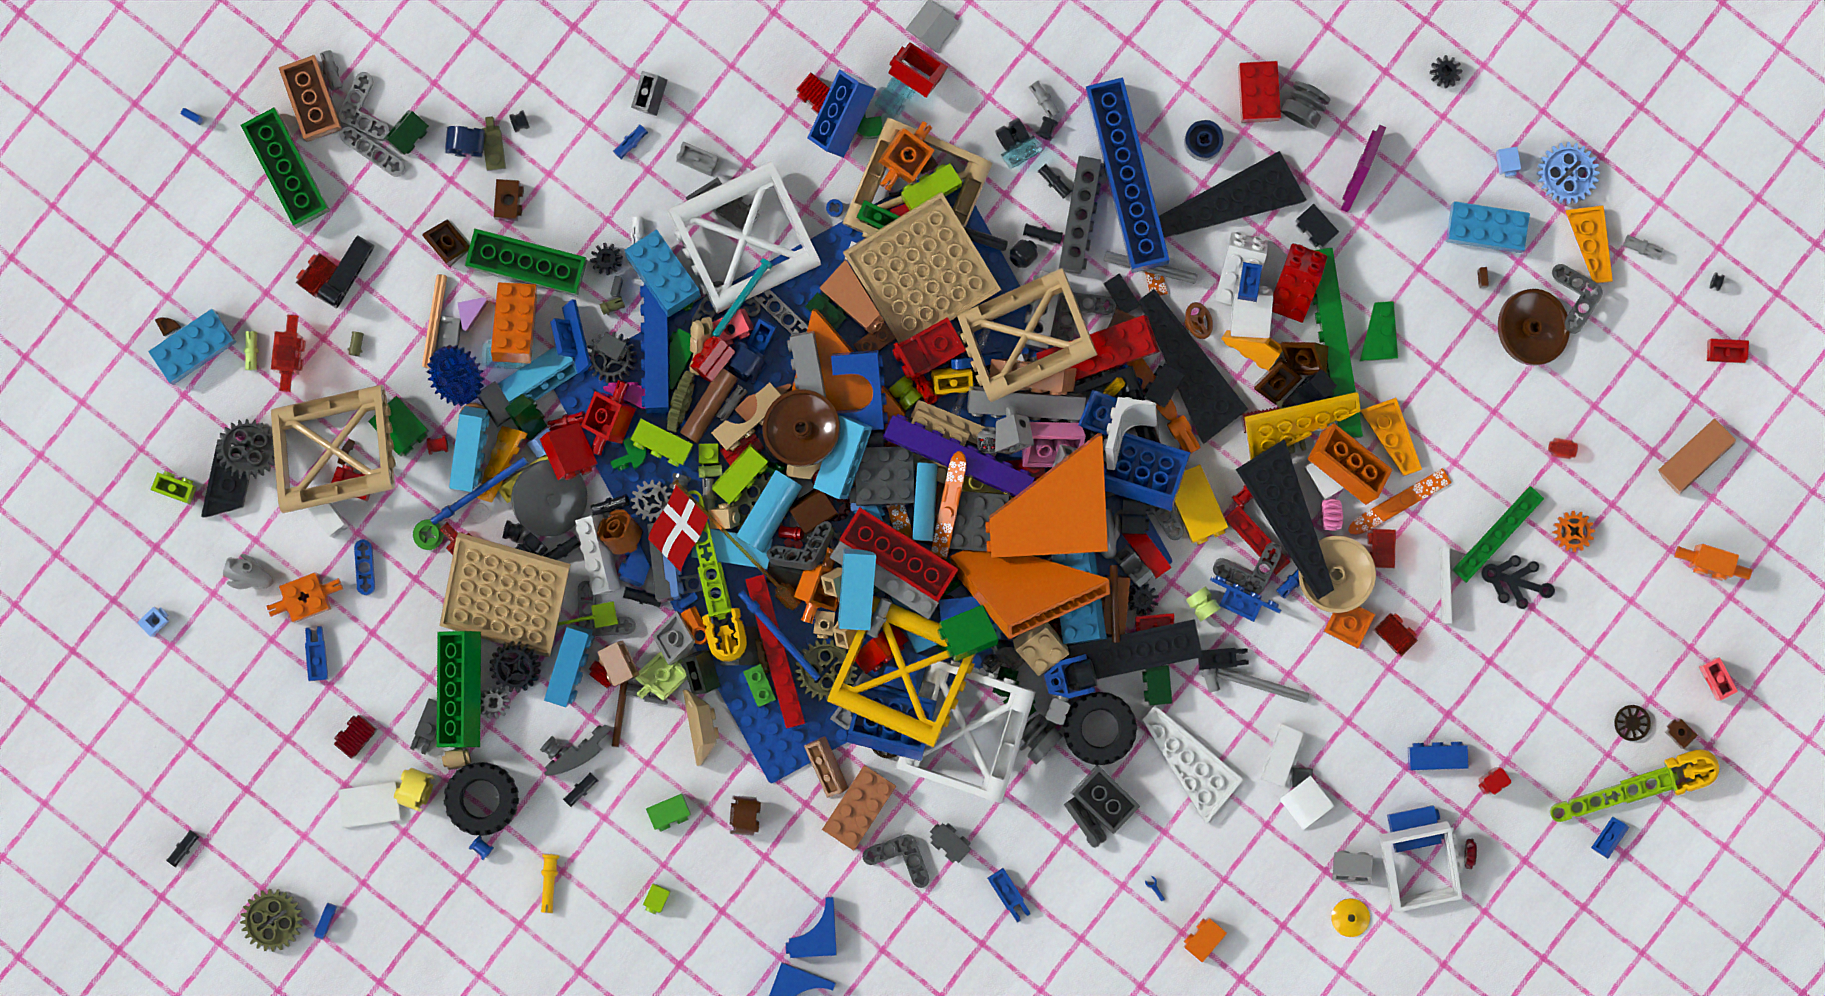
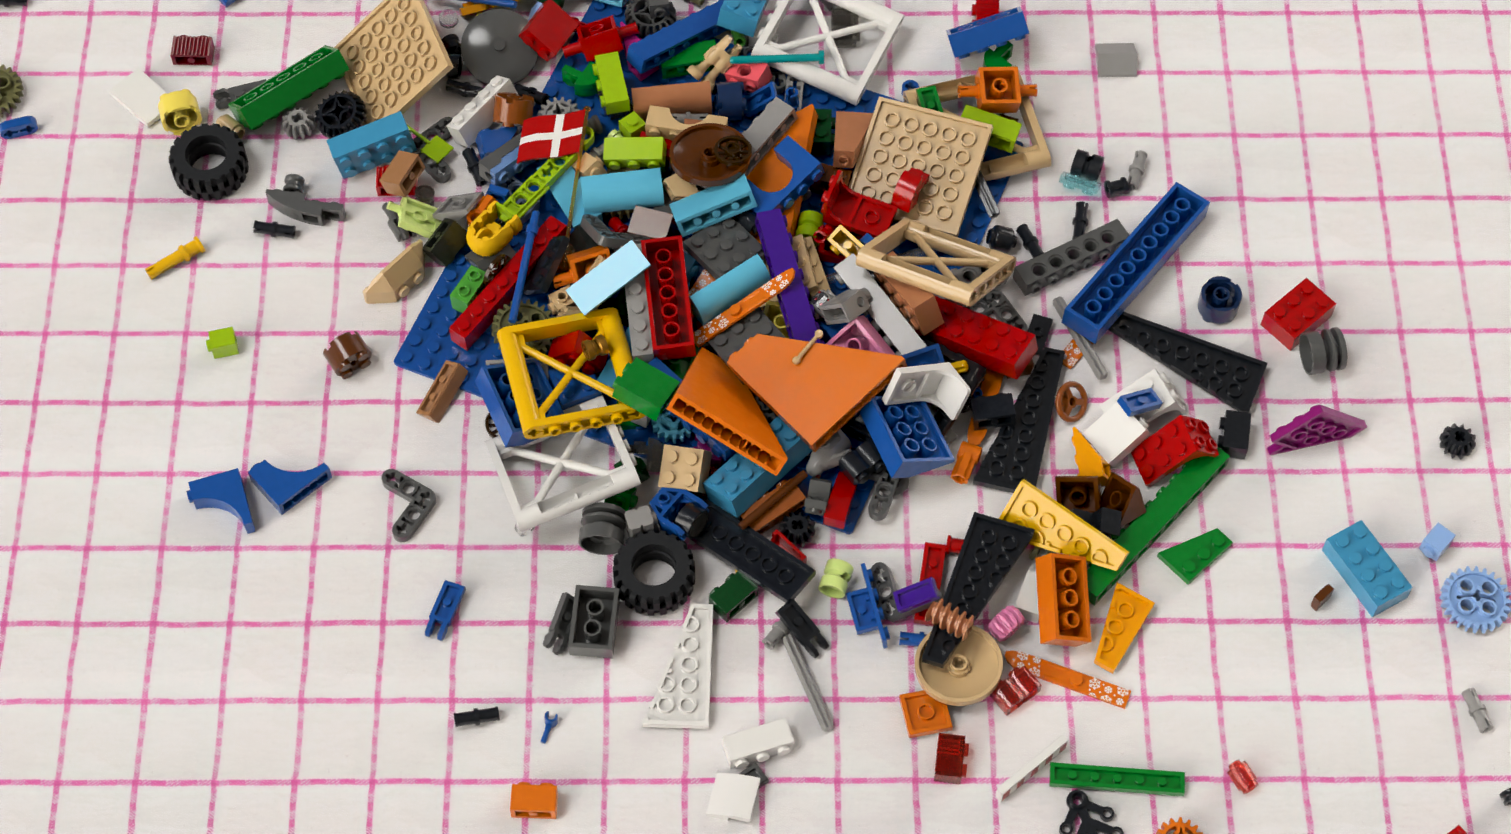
camera: 50 degrees right, 25 degrees down
(481, 847) = (167, 192): blue bush -> none
(619, 715) = (362, 216): reddish brown bar -> none
(639, 653) = (425, 194): none -> clear smoke wheel
(668, 812) = (306, 302): bright green brick -> none
(681, 401) = (657, 69): olive gear -> none
(712, 358) = (710, 68): red brick -> none
(788, 324) = (792, 98): none -> blue pin
(789, 616) = (546, 267): none -> black wing
(815, 410) = (733, 150): none -> dark brown wheel
(859, 807) = (426, 437): nougat brick -> none
(879, 617) = (601, 320): light grey pin -> none
(893, 97) = (1038, 72): clear light blue piece -> none
(901, 641) = (595, 347): none -> pearl gold wheel
(923, 62) = (1072, 63): red window -> none
(940, 295) = (908, 189): none -> red brick
(944, 837) = (453, 524): dark grey brick -> none
(1030, 478) = (818, 335): none -> tan hinge
(1110, 932) = (476, 716): none -> black pin
(1199, 507) = (916, 513): yellow brick -> none
(1266, 562) = (916, 595): none -> dark purple tile
(1309, 558) = (950, 619): none -> nougat piece
(1533, 327) = (1321, 667): reddish brown dish -> none
(1584, 297) = (1387, 689): dark grey beam -> none
(1591, 236) = (1441, 663): light orange wing -> none

